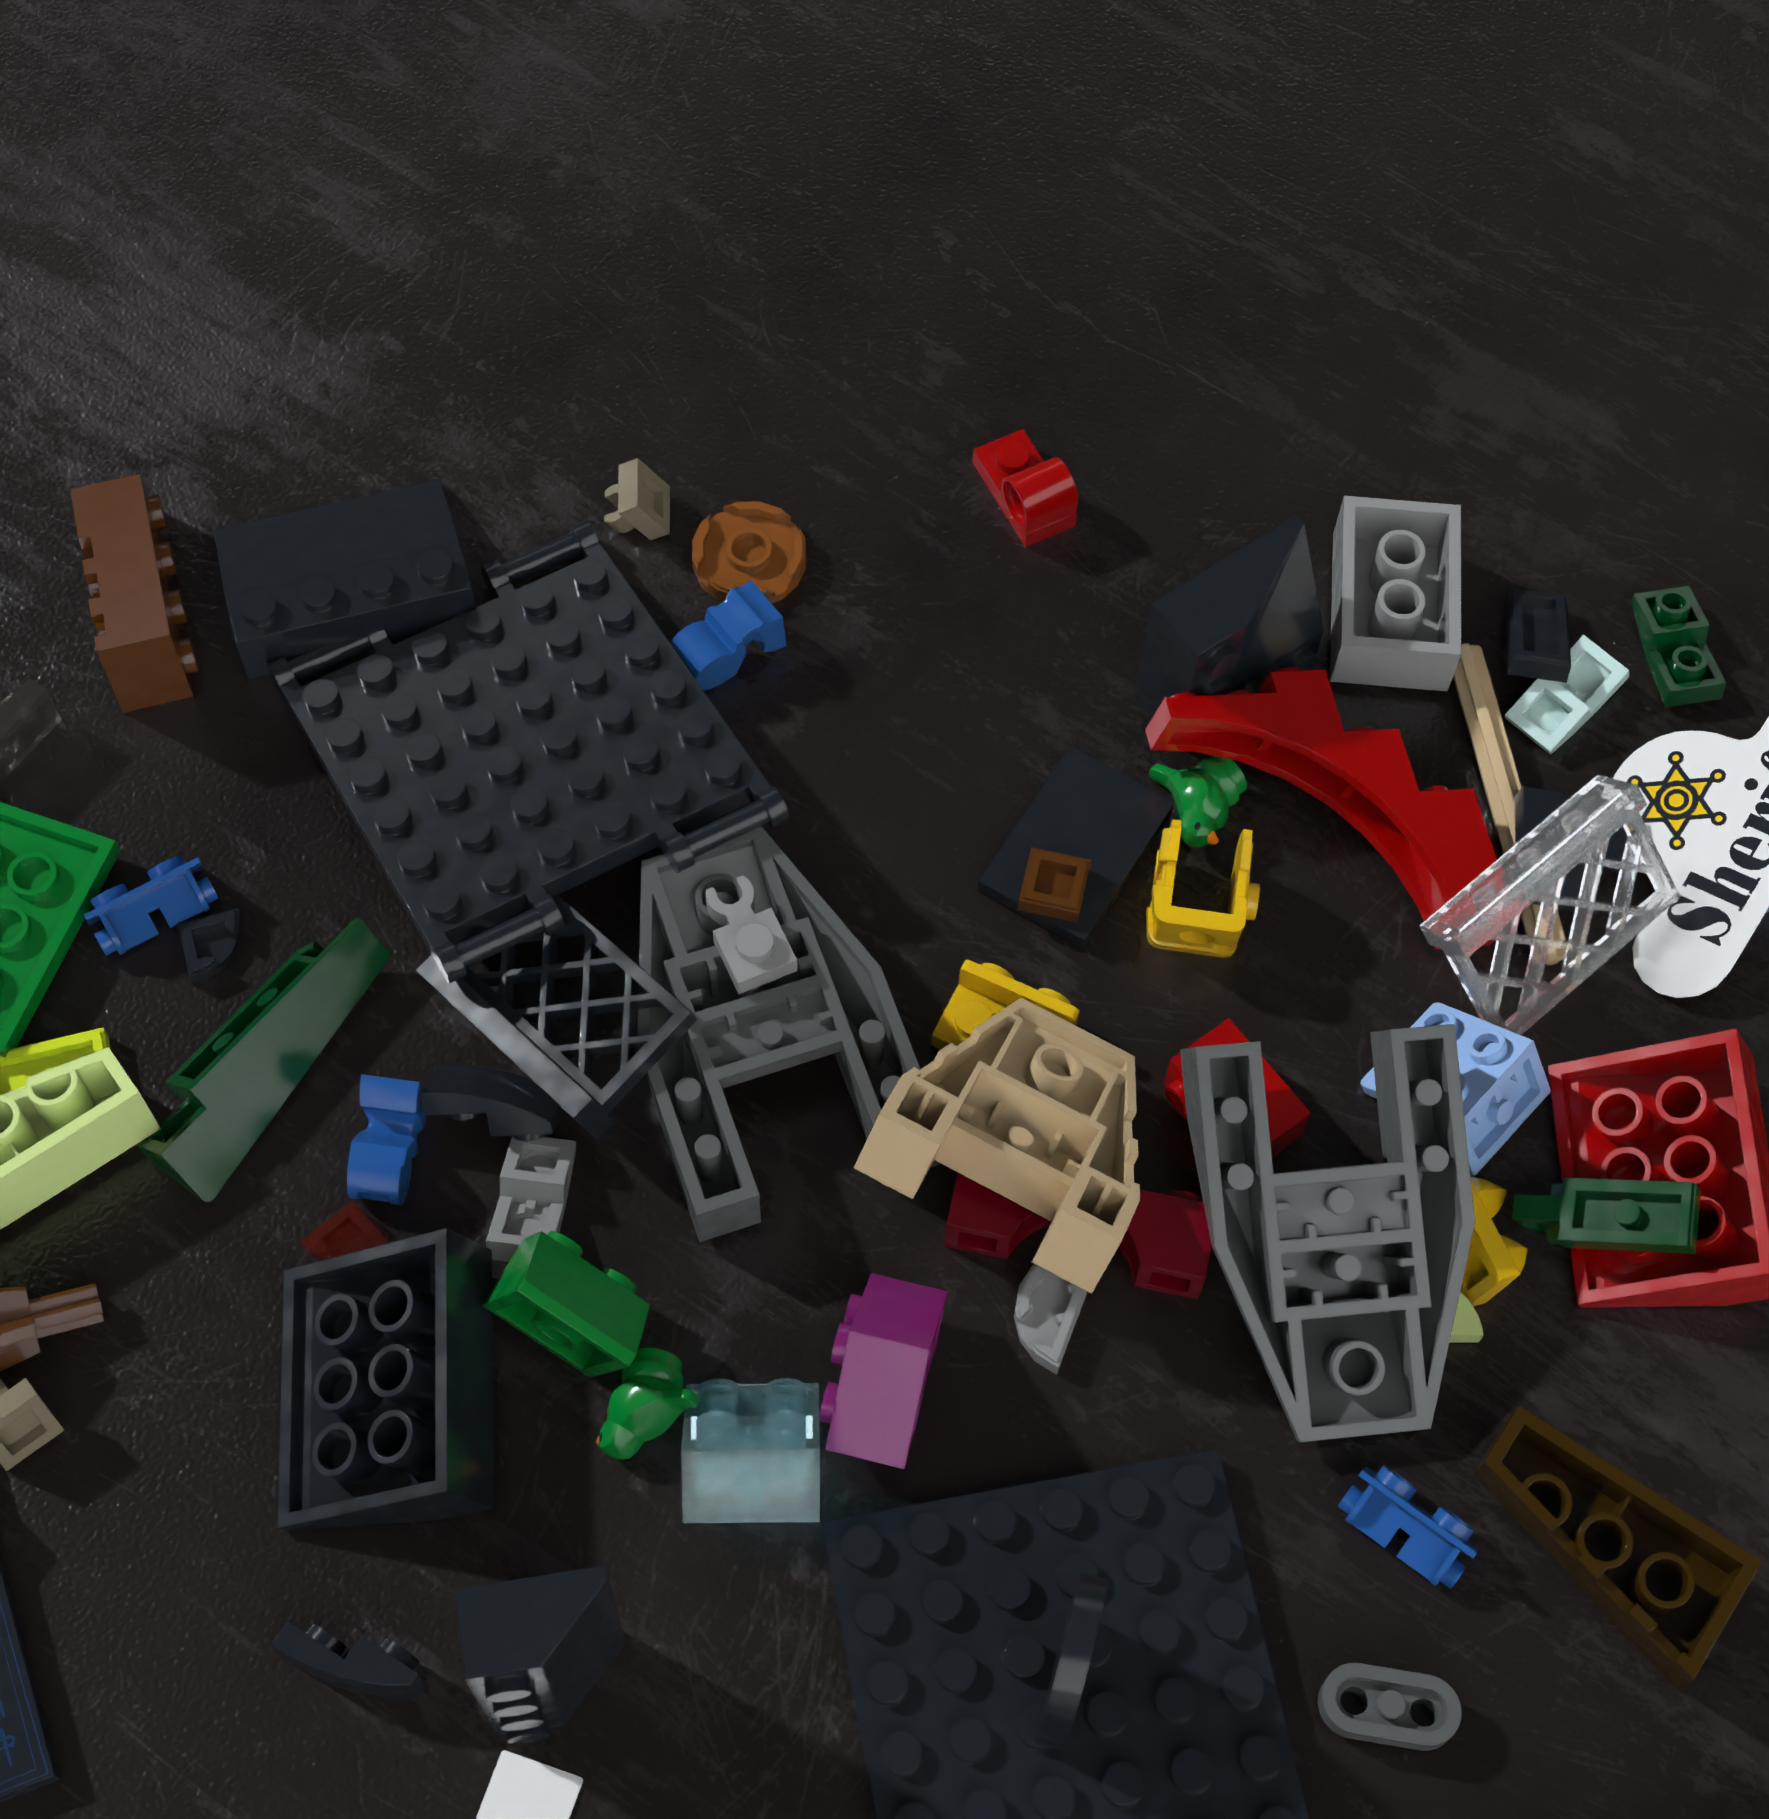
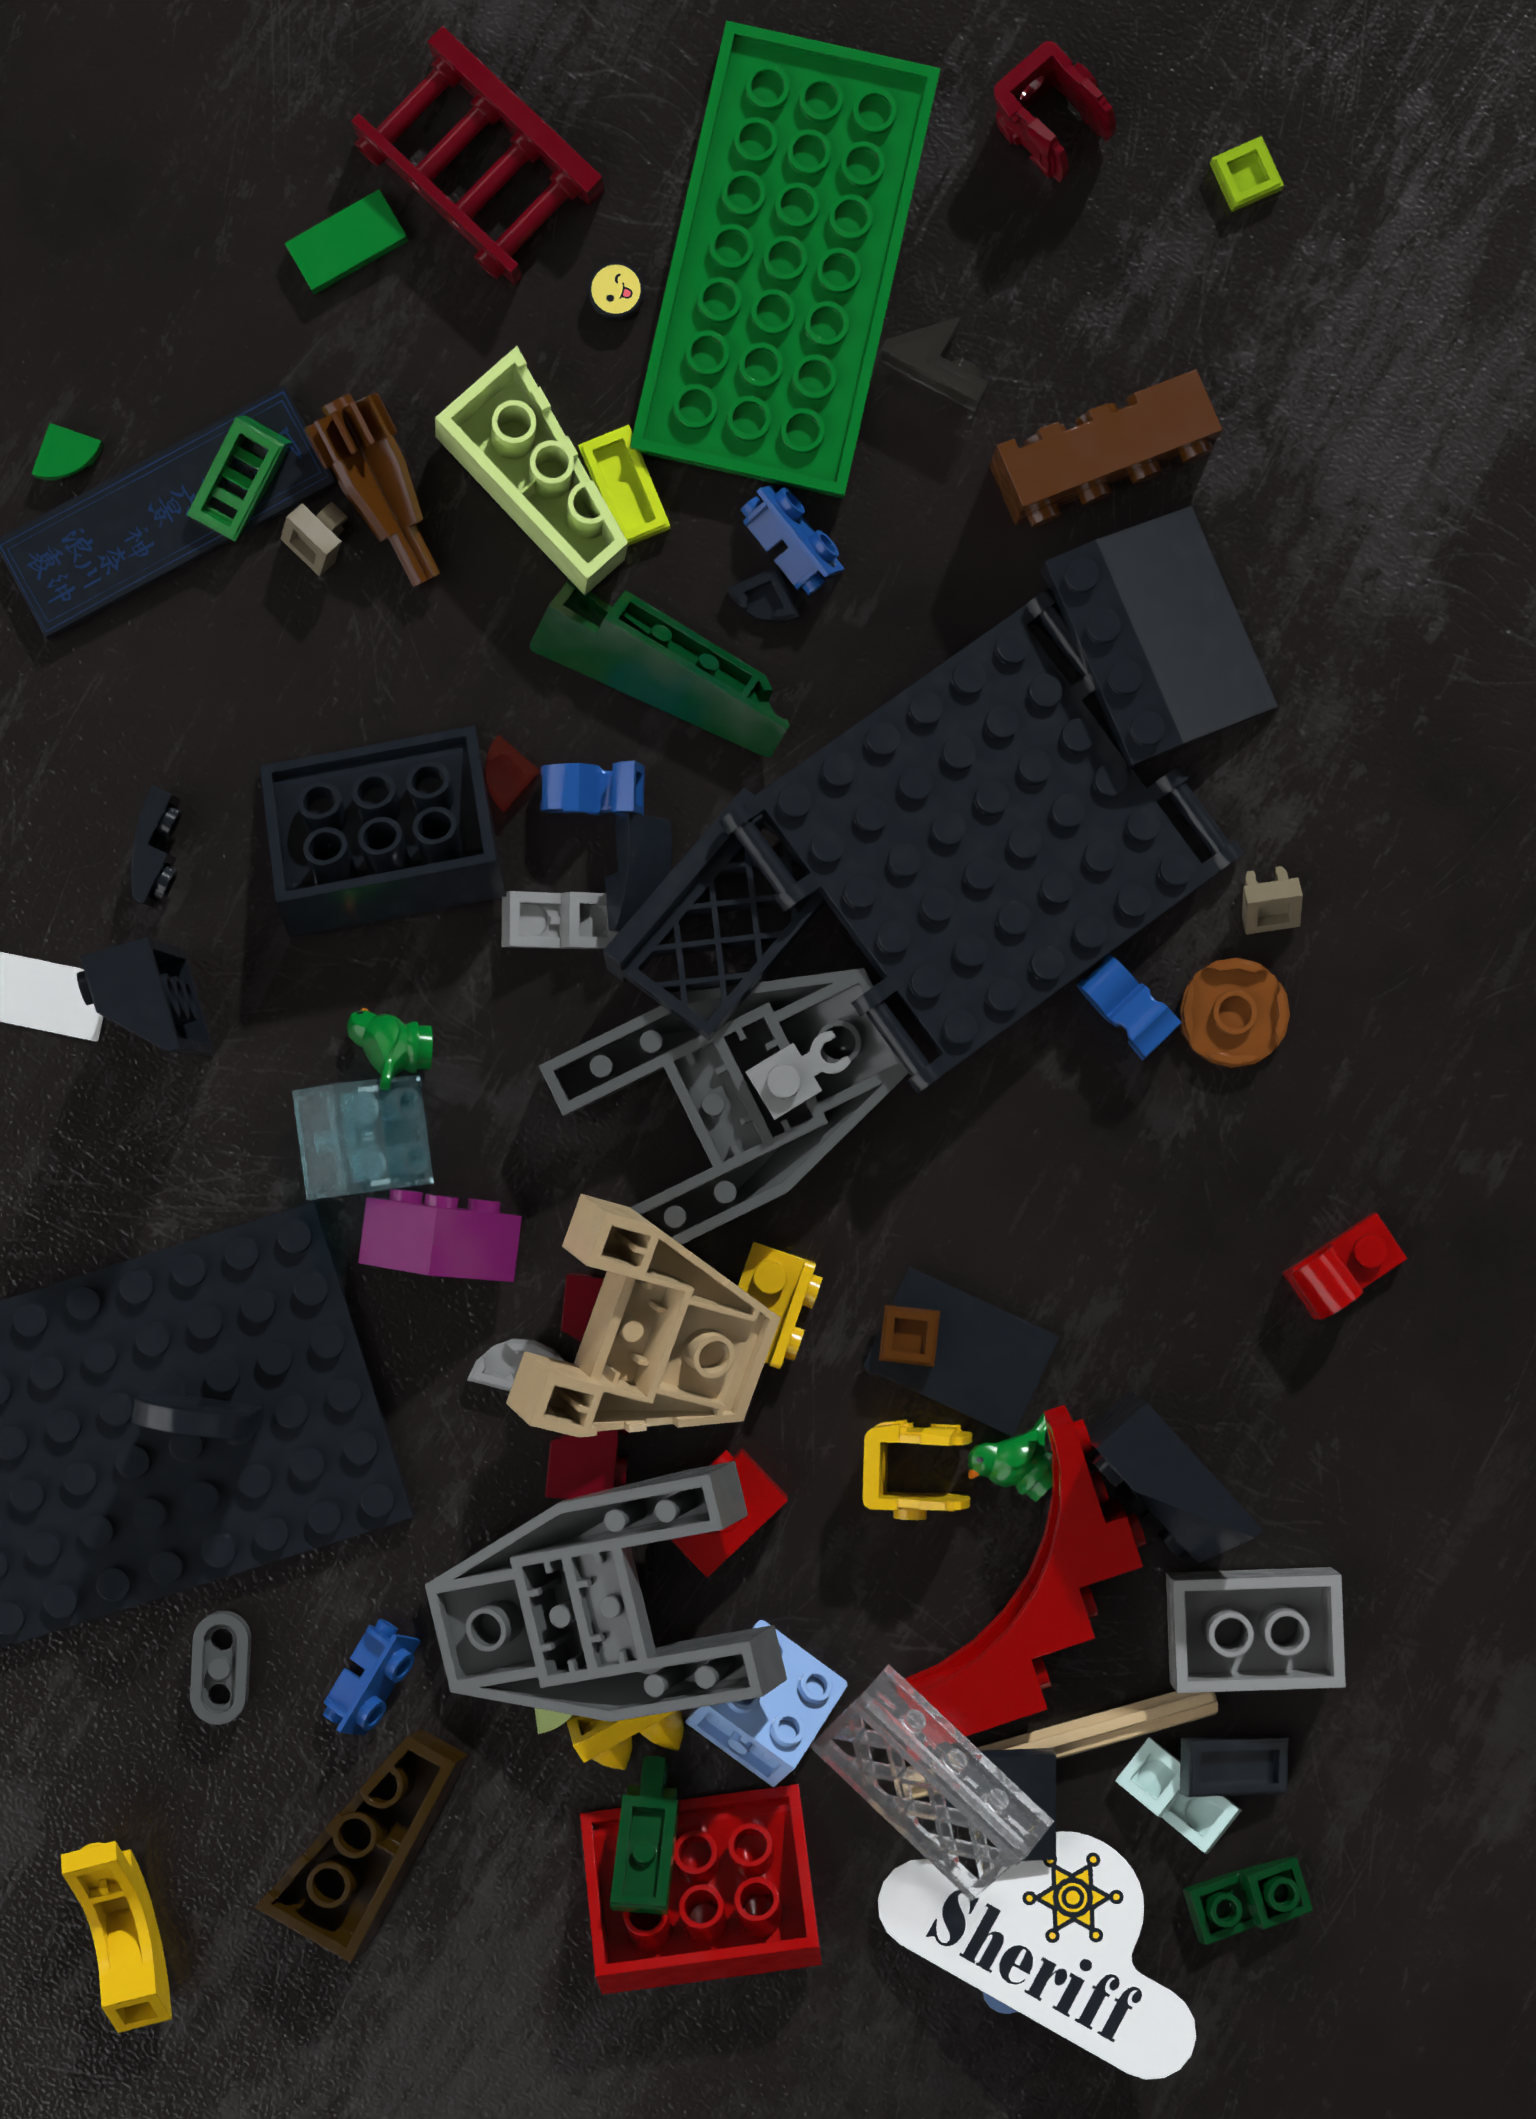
camera: 85 degrees right, 25 degrees up
(570, 1305) = (455, 973): green slope -> none

